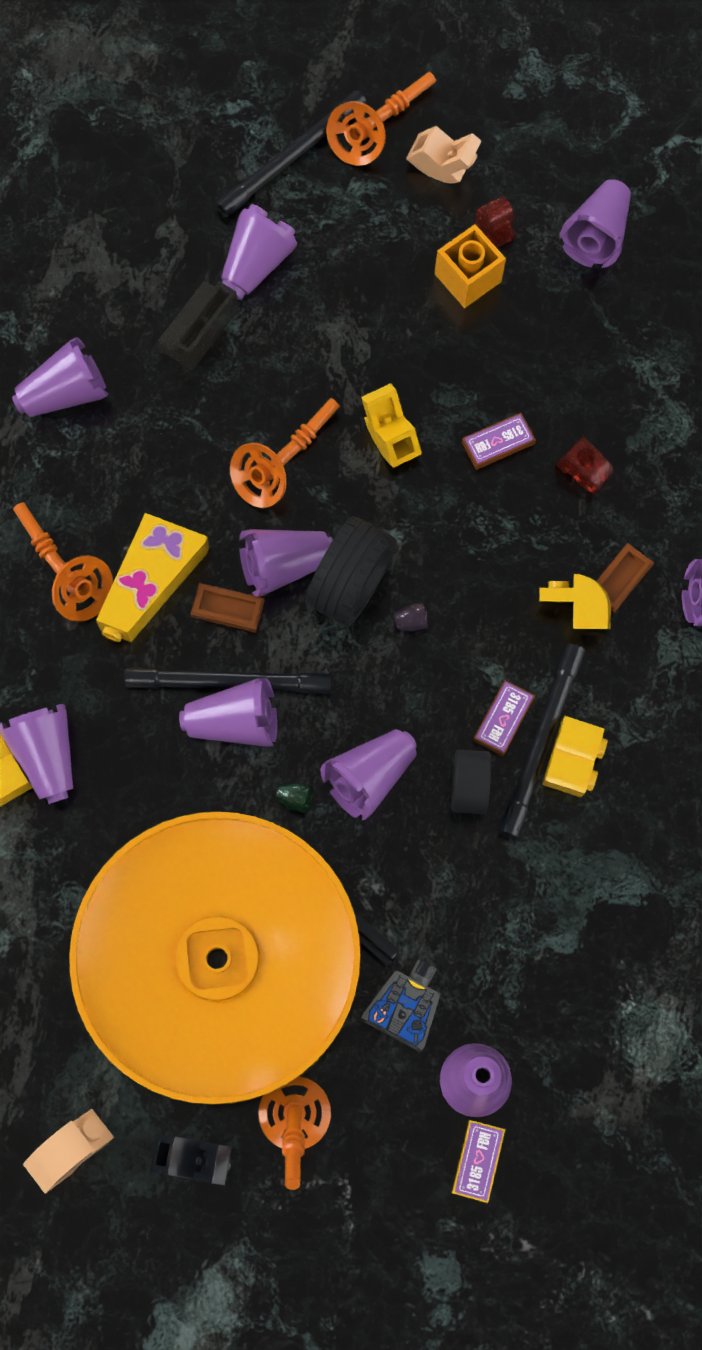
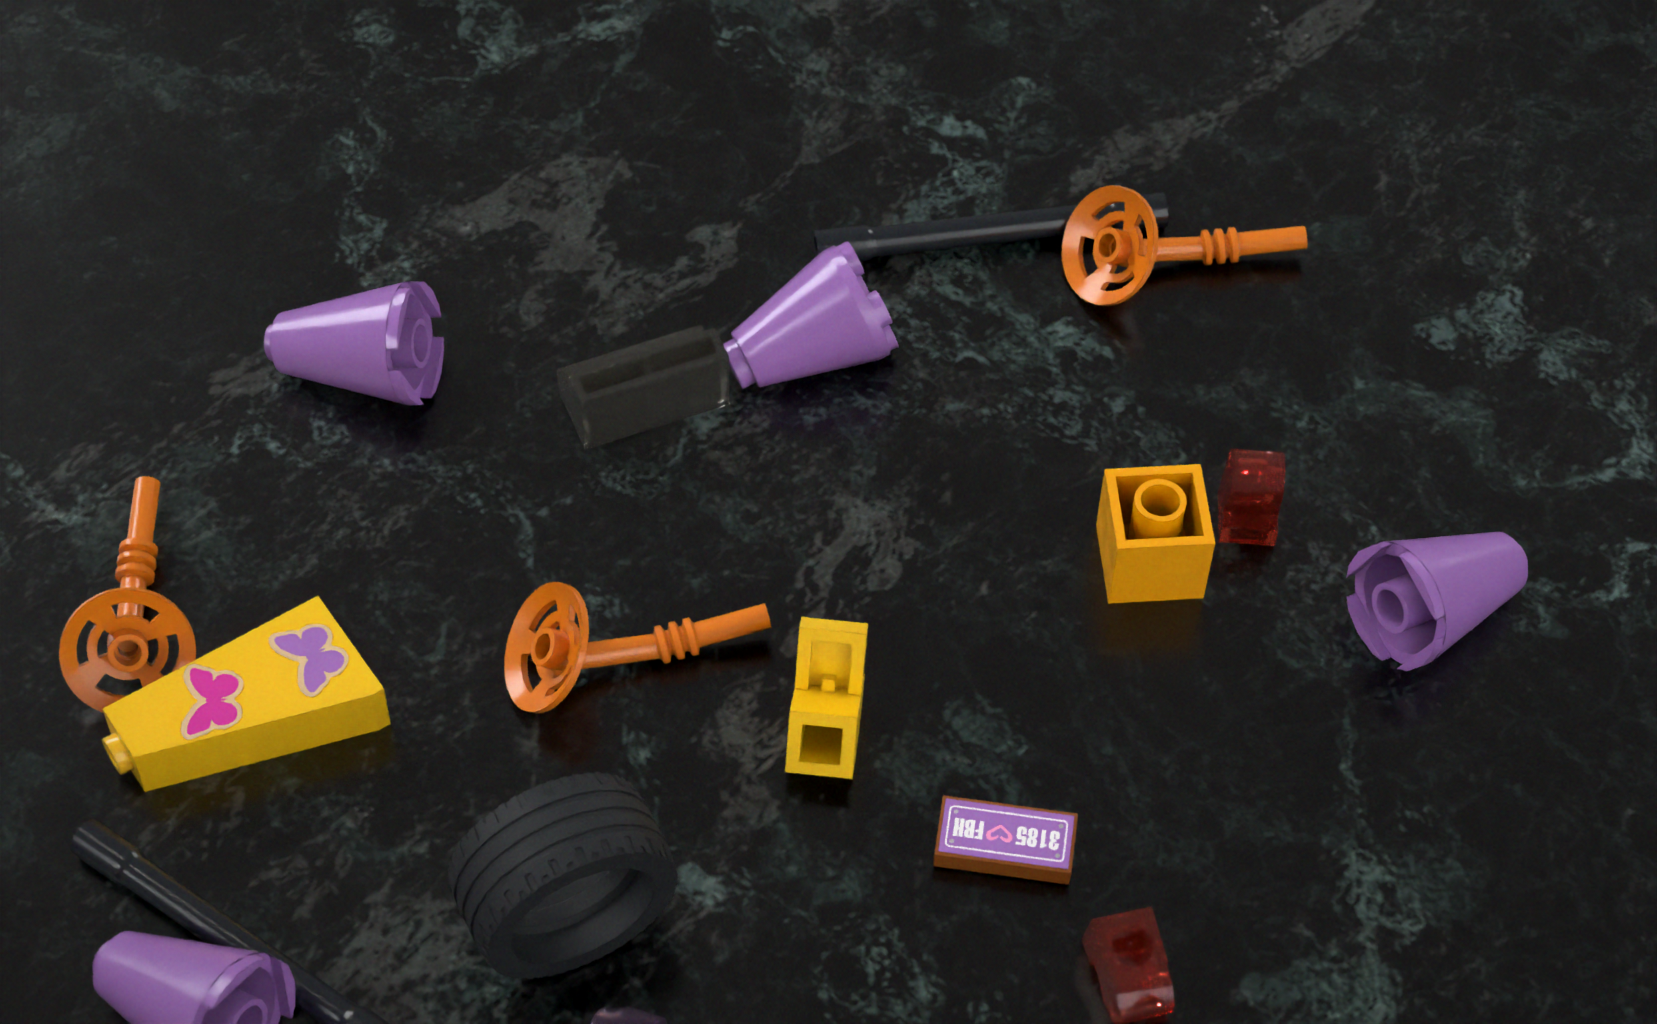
camera: 35 degrees right, 20 degrees down
(227, 607) = (338, 830): dark orange tile -> none
(280, 556) = (459, 781): medium lavender cone -> none
(442, 157) = (1233, 354): light nougat brick -> none

